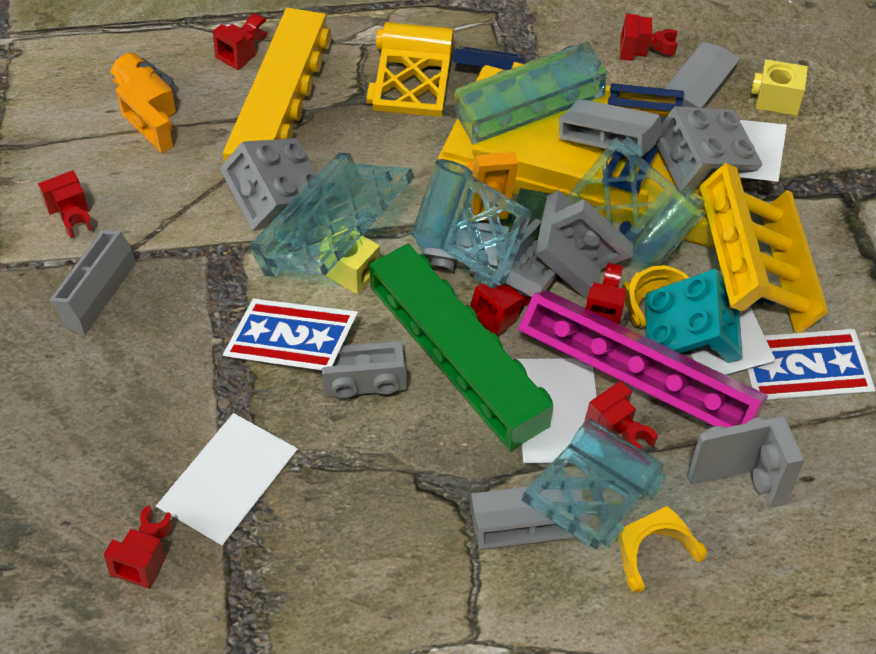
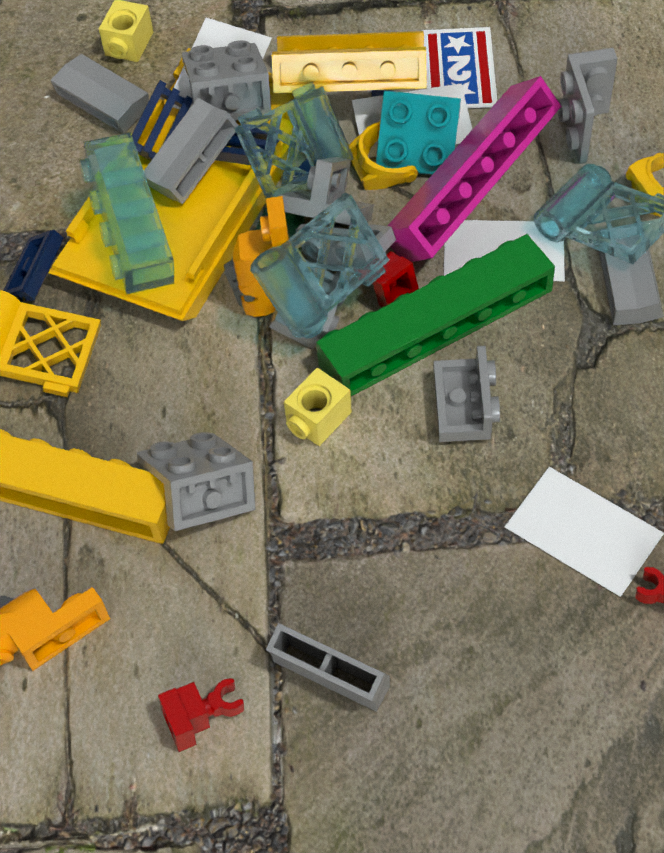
camera: 80 degrees left, 5 degrees up
(290, 334) = (413, 466): sticker -> none
(310, 216) = (252, 442): clear light blue fence -> none
(608, 298) = (388, 195): red piece -> none
(617, 414) = (522, 199): red piece -> none
(638, 37) = (24, 133): red piece -> none

